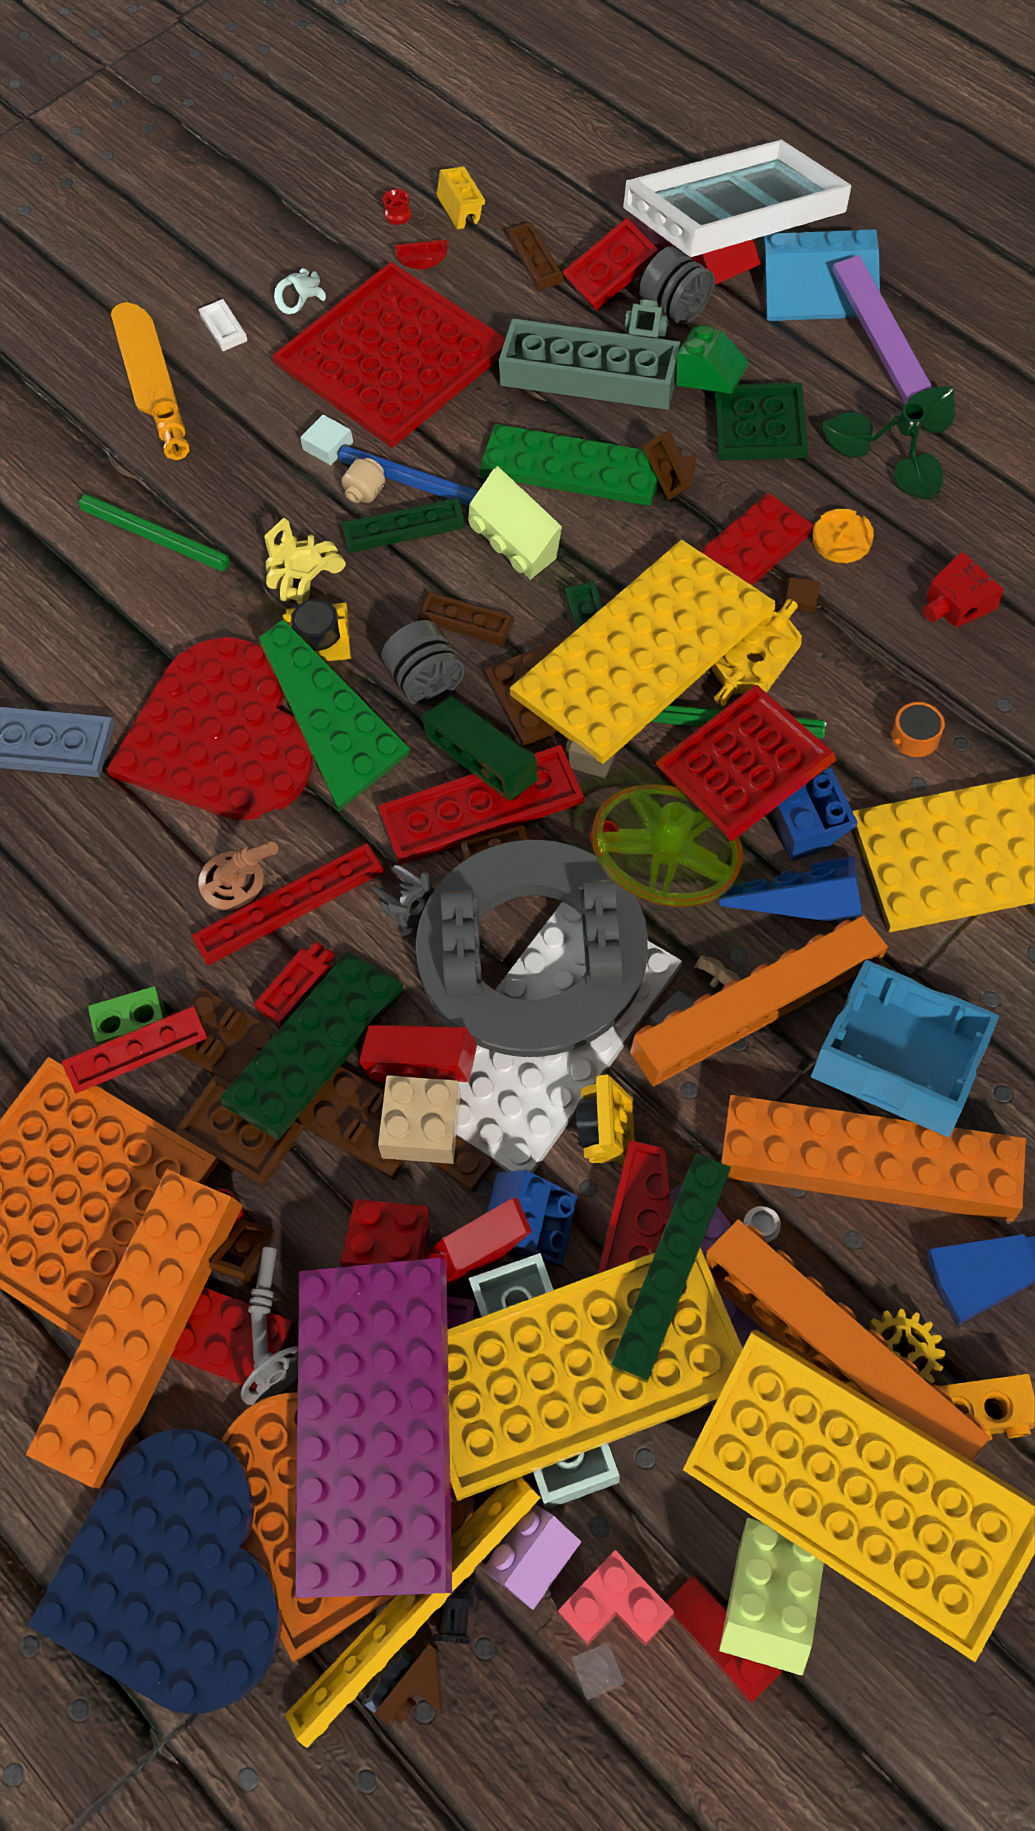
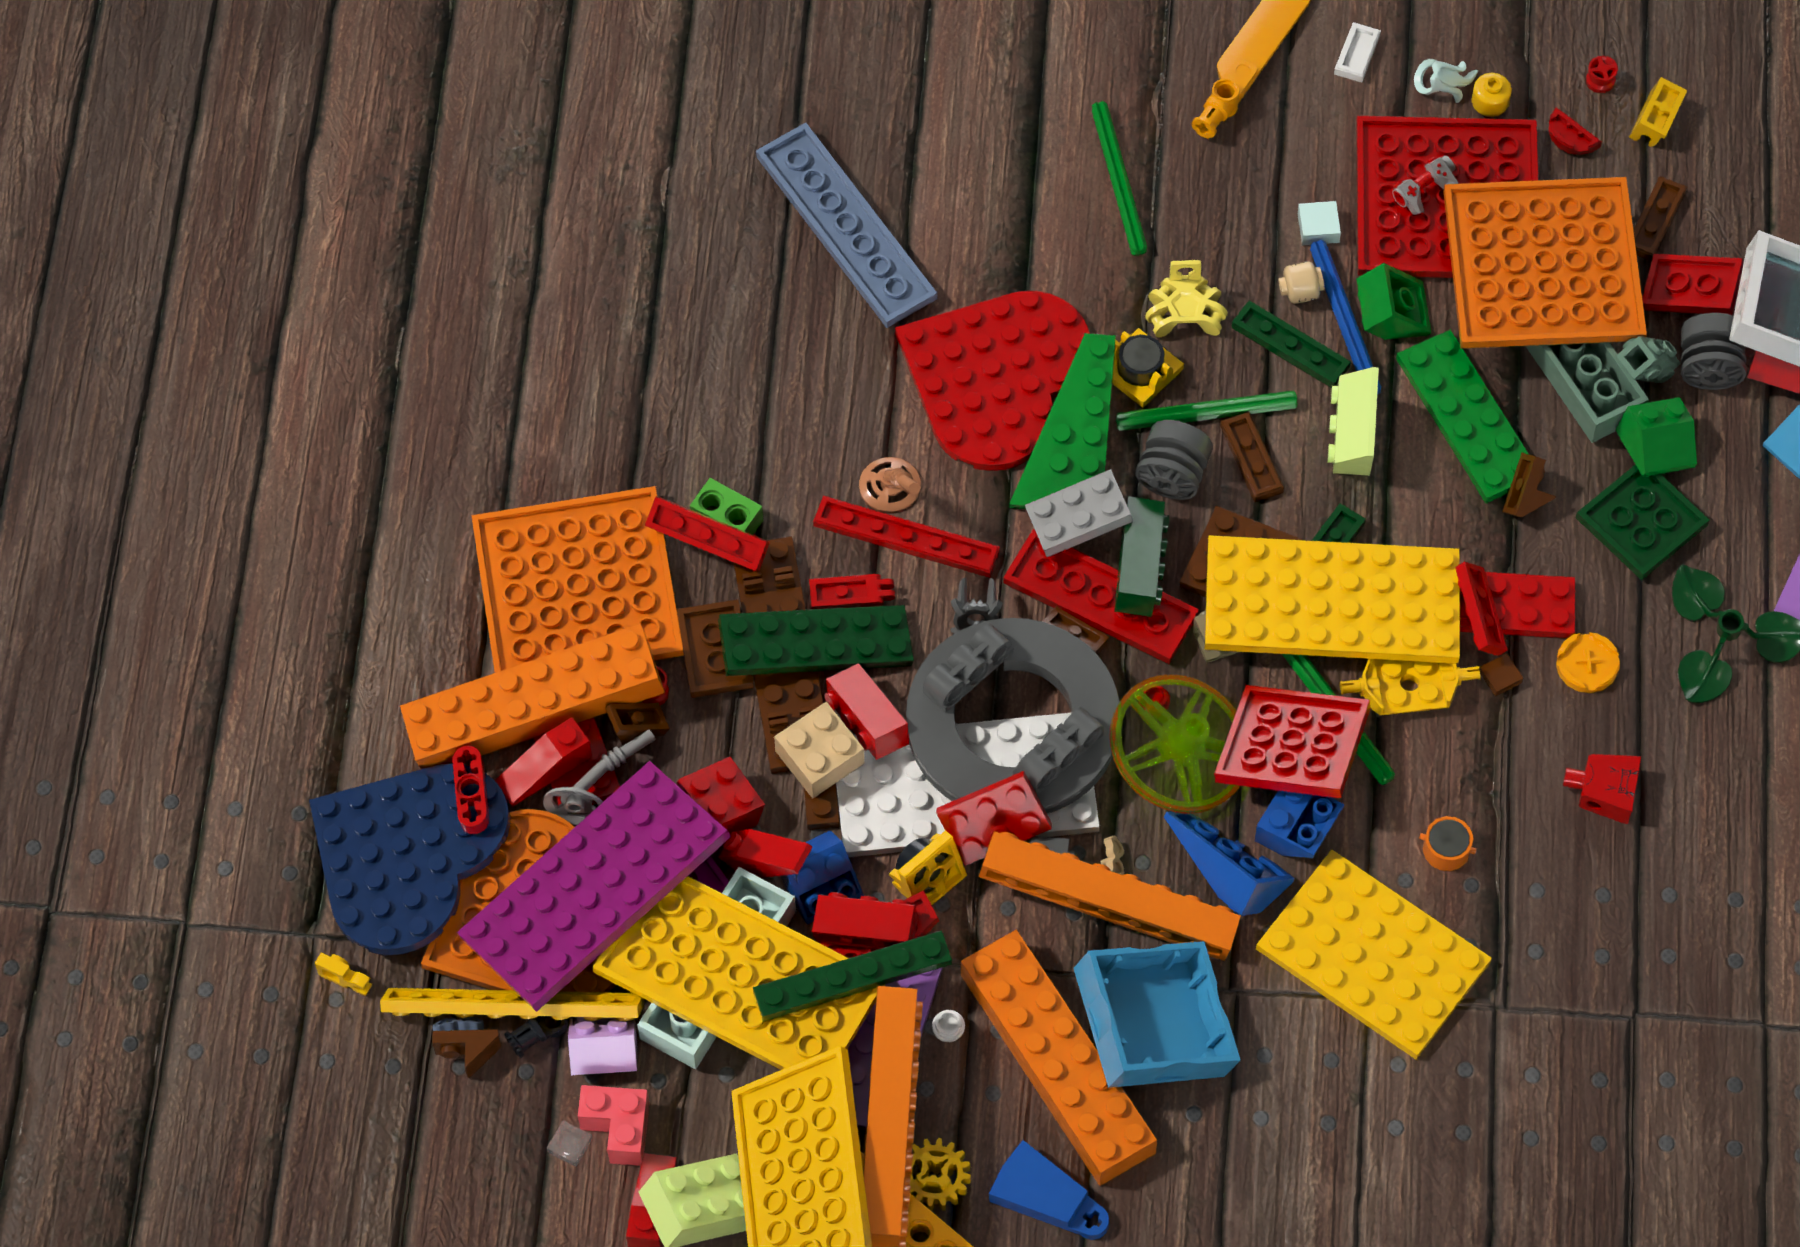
camera: 45 degrees right, 0 degrees up
(143, 1453) = (463, 779): none -> red beam
(206, 1367) = (545, 761): none -> red slope
(223, 1753) = (338, 971): none -> yellow plate
(344, 271) = (1491, 94): none -> yellow head
(366, 364) = (1408, 191): none -> light grey piece
(397, 618) = (1207, 410): none -> green axle
(401, 760) = (1078, 513): none -> light grey plate
(438, 442) = (1393, 304): none -> green slope
(513, 321) = (1544, 262): none -> orange plate
(609, 1026) = (1000, 807): none -> red plate
(620, 1212) = (863, 921): none -> red brick
(745, 561) = (1481, 608): none -> red plate

